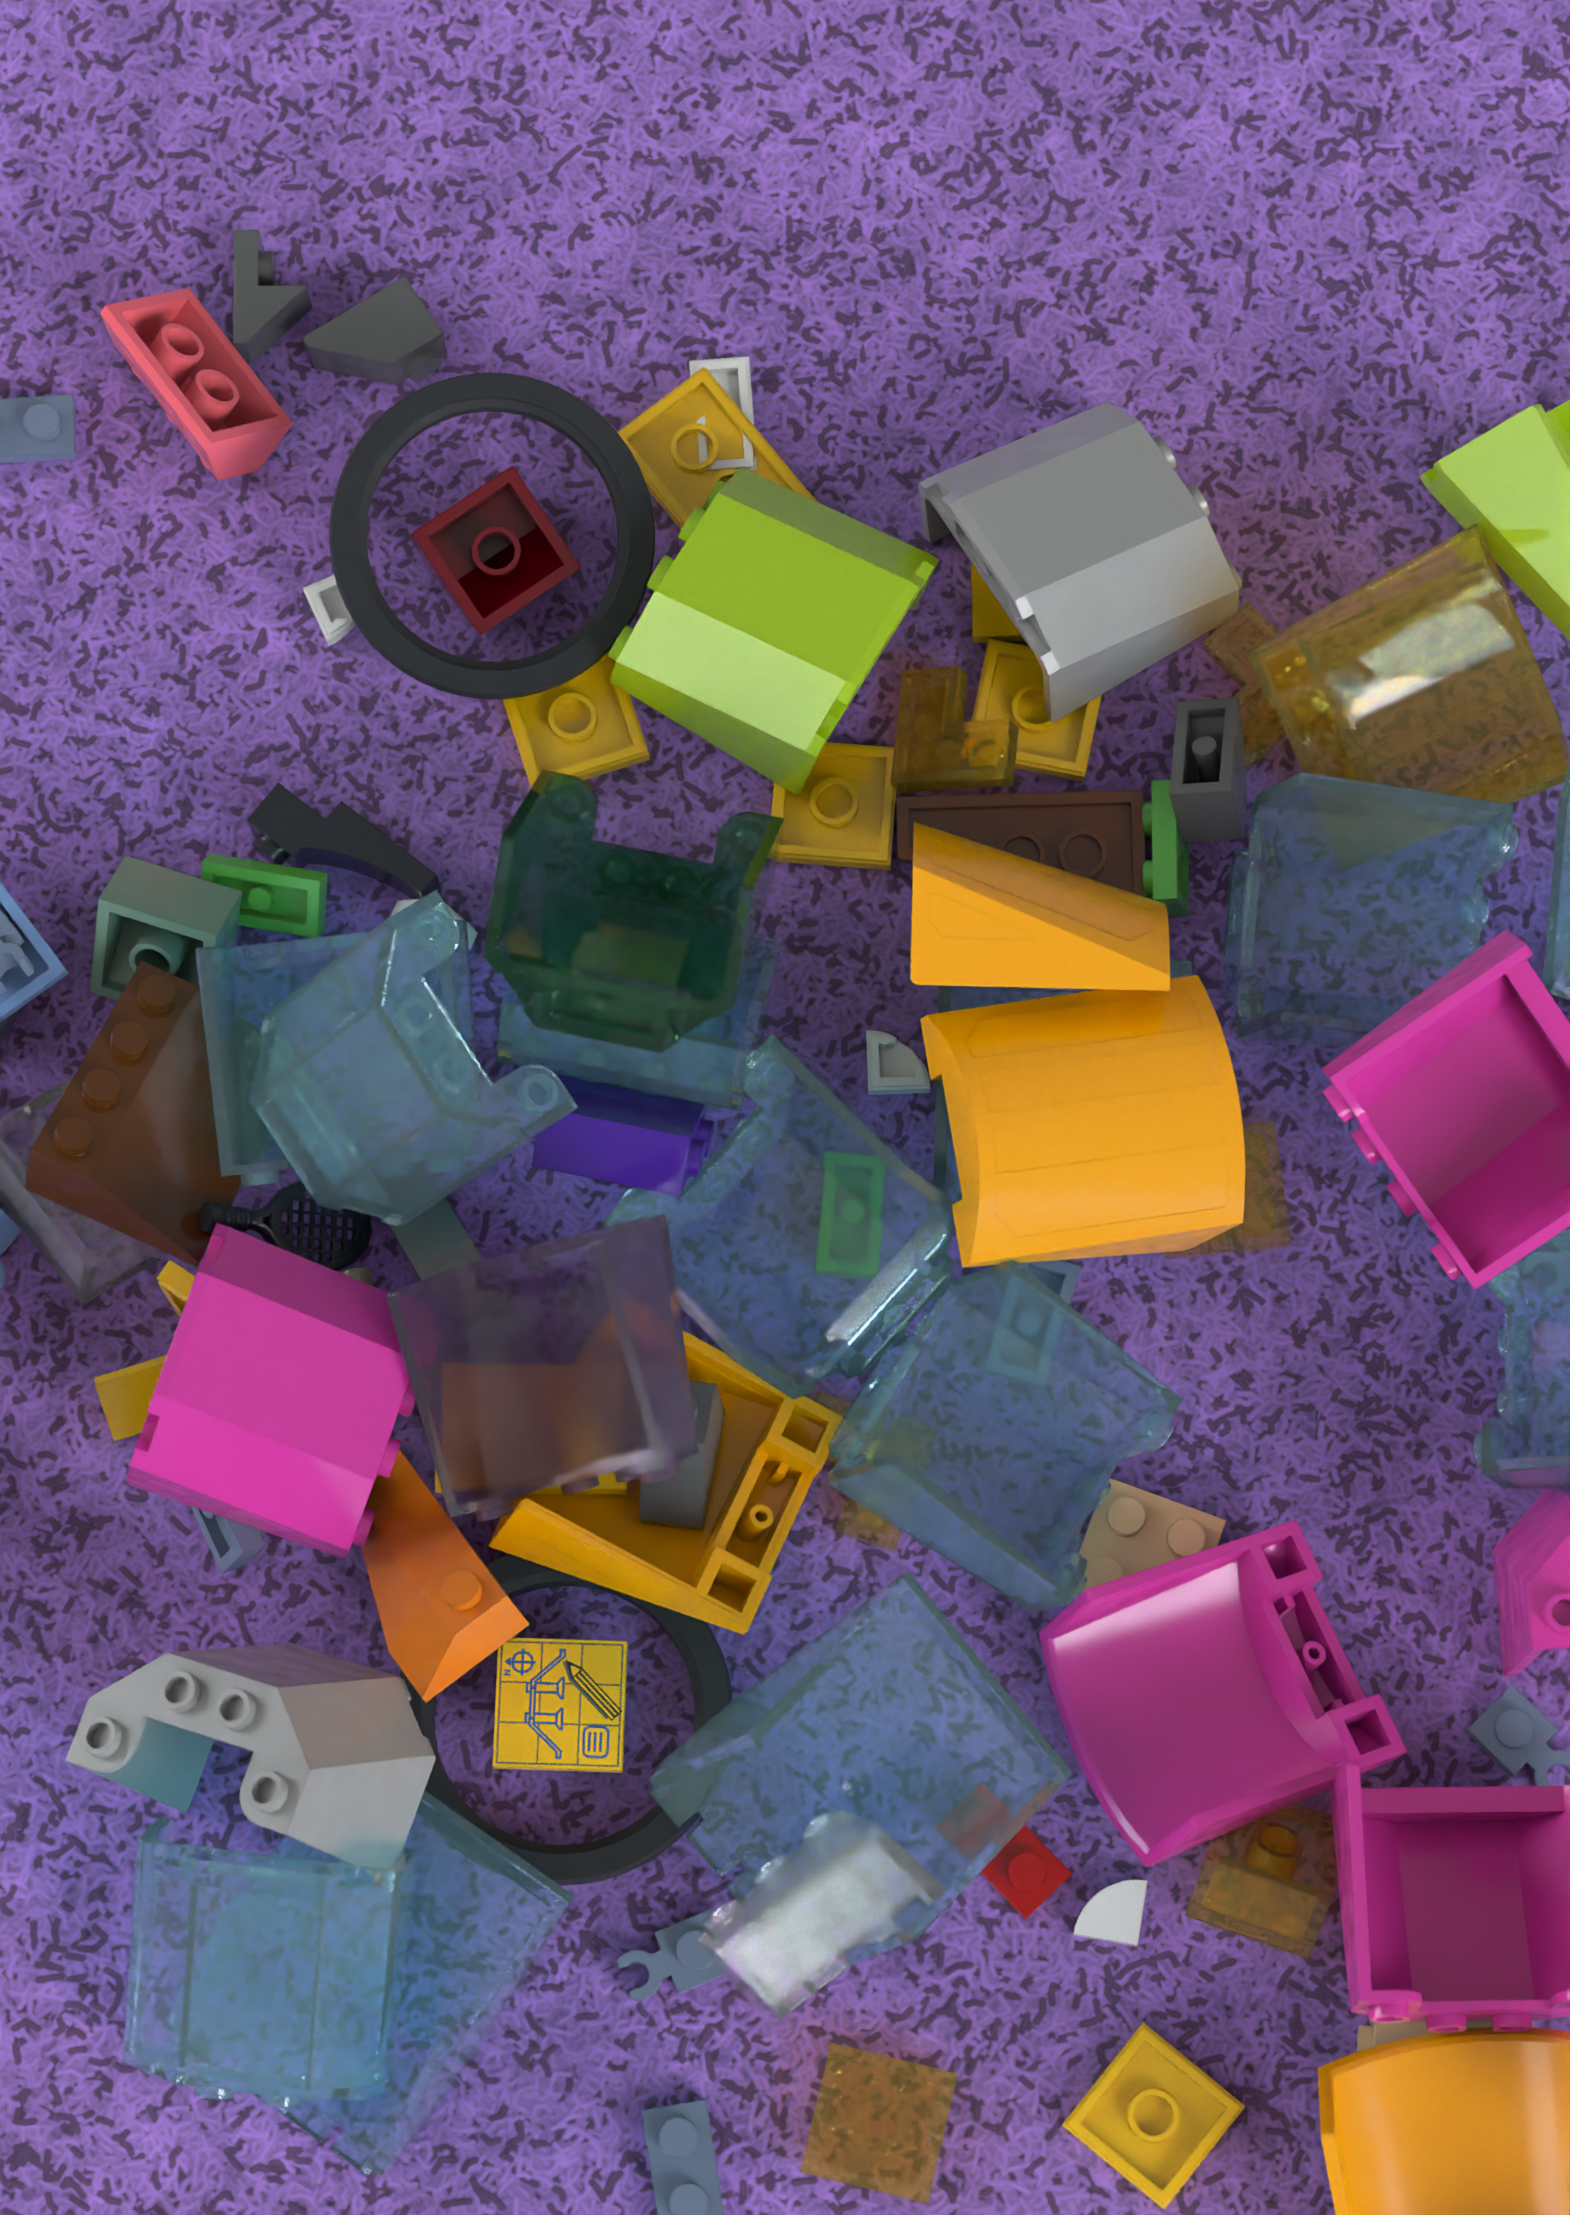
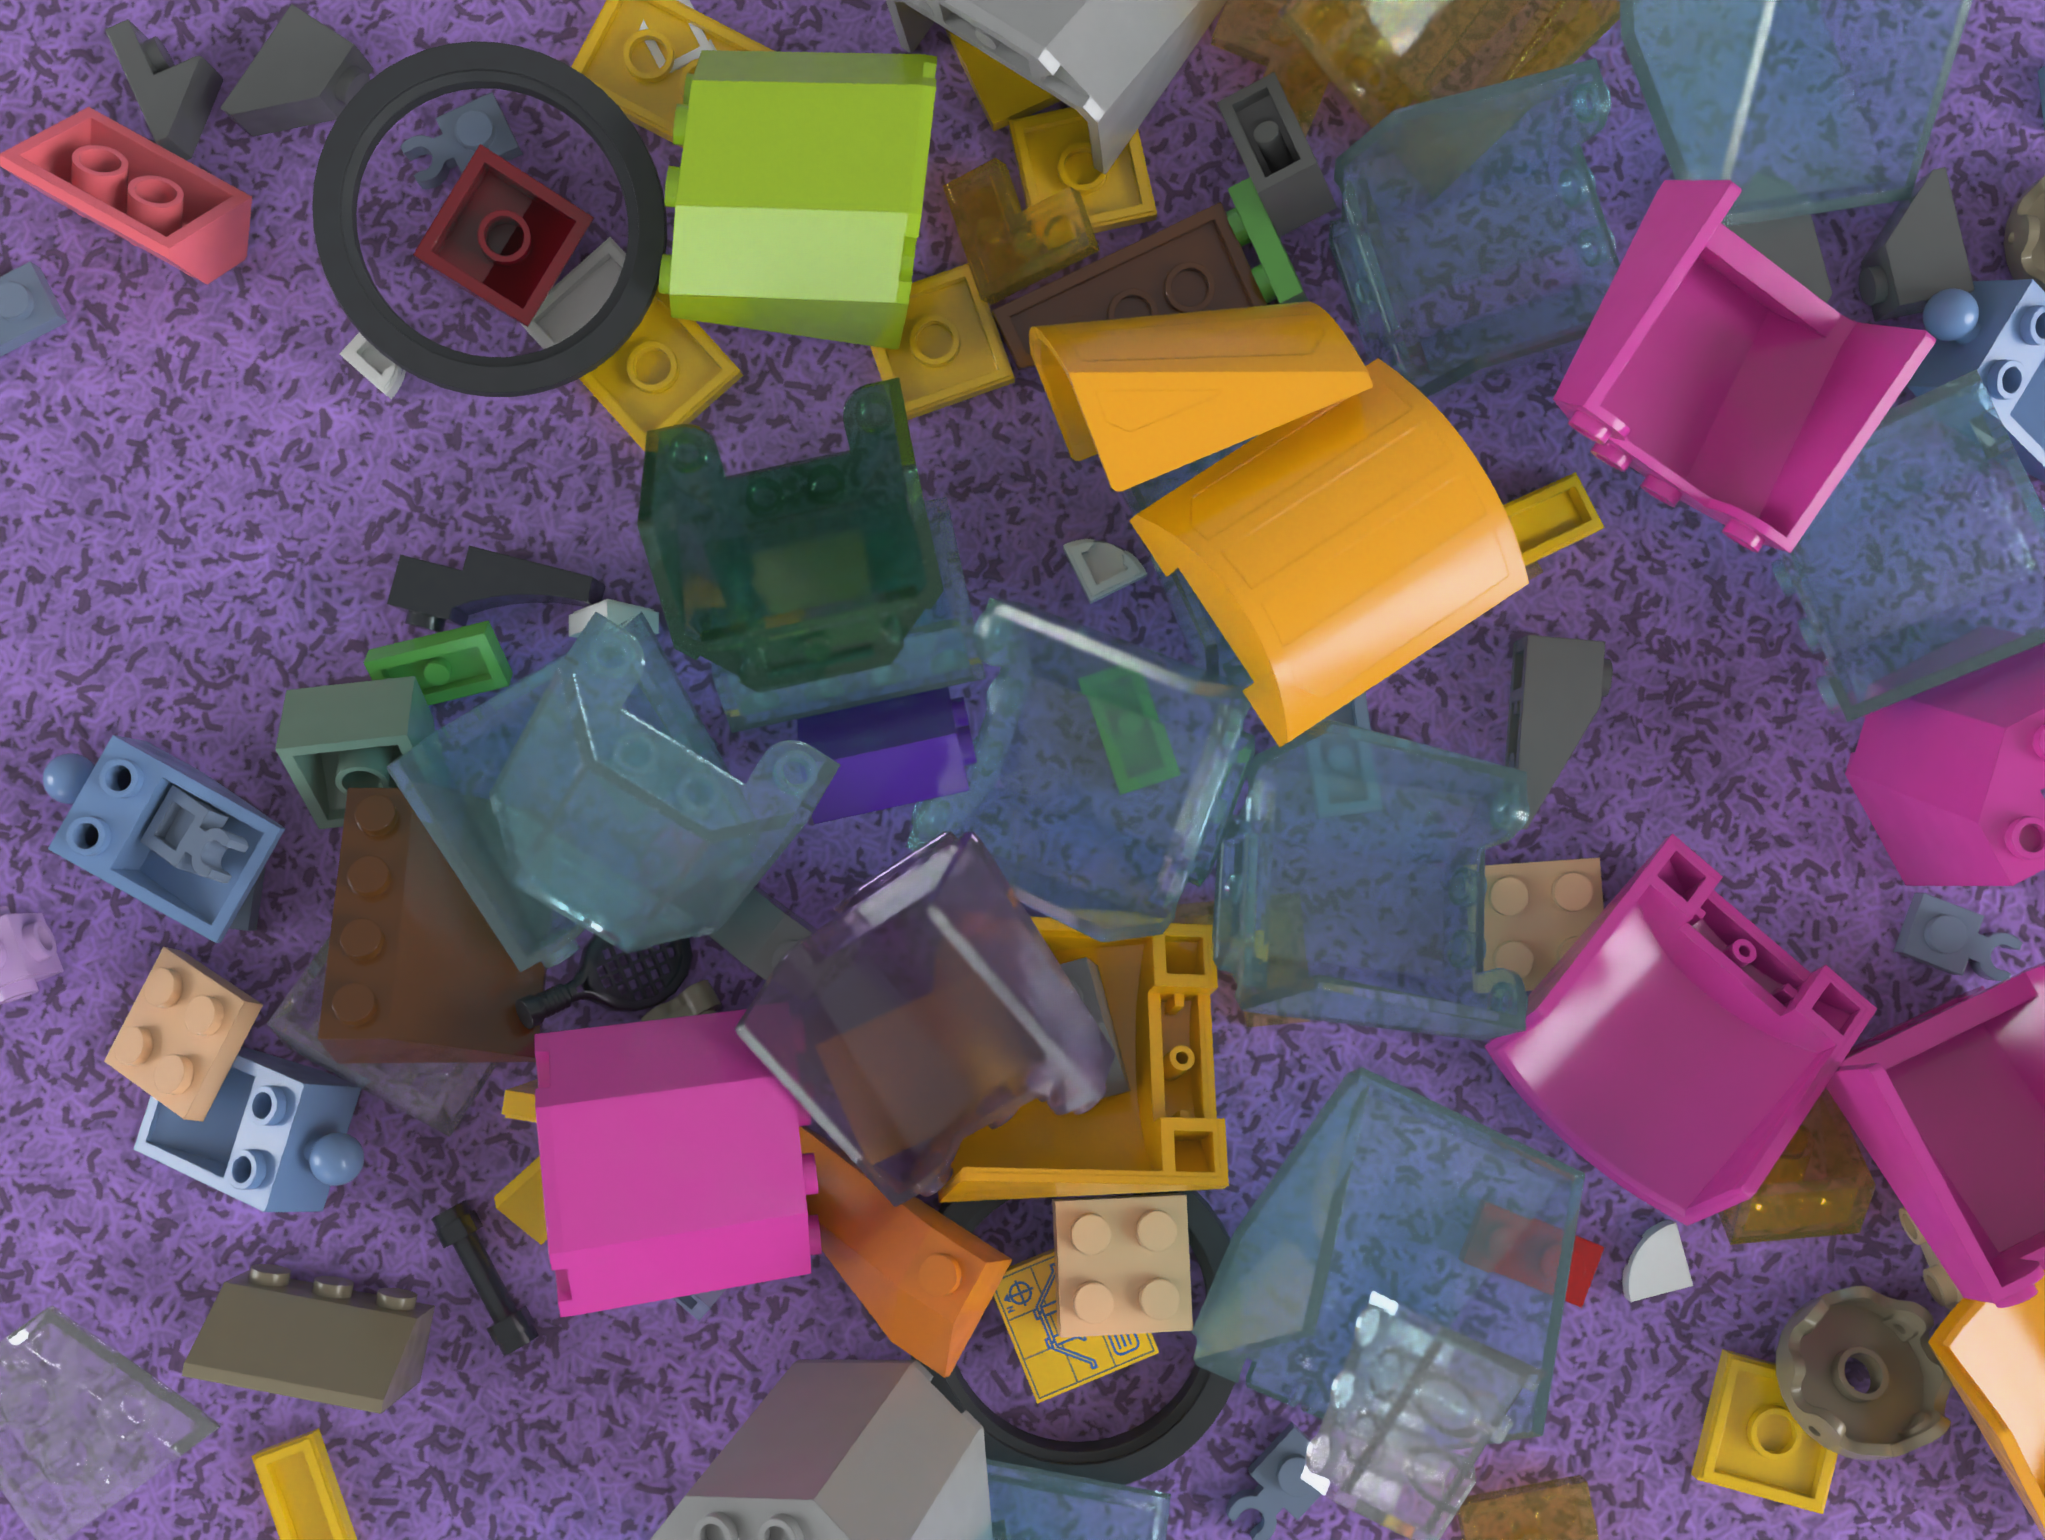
camera: 25 degrees left, 10 degrees up
(53, 1502) = (511, 1325): none -> black bar
(498, 449) = (463, 132): none -> sand blue plate
(536, 628) = (578, 296): none -> white tile
(624, 1674) = (1122, 1265): none -> light nougat plate
(1239, 1368) = (1551, 705): none -> dark grey slope
(1275, 2050) = (1906, 1378): none -> dark tan plate
(1304, 1197) = (1552, 518): none -> yellow tile

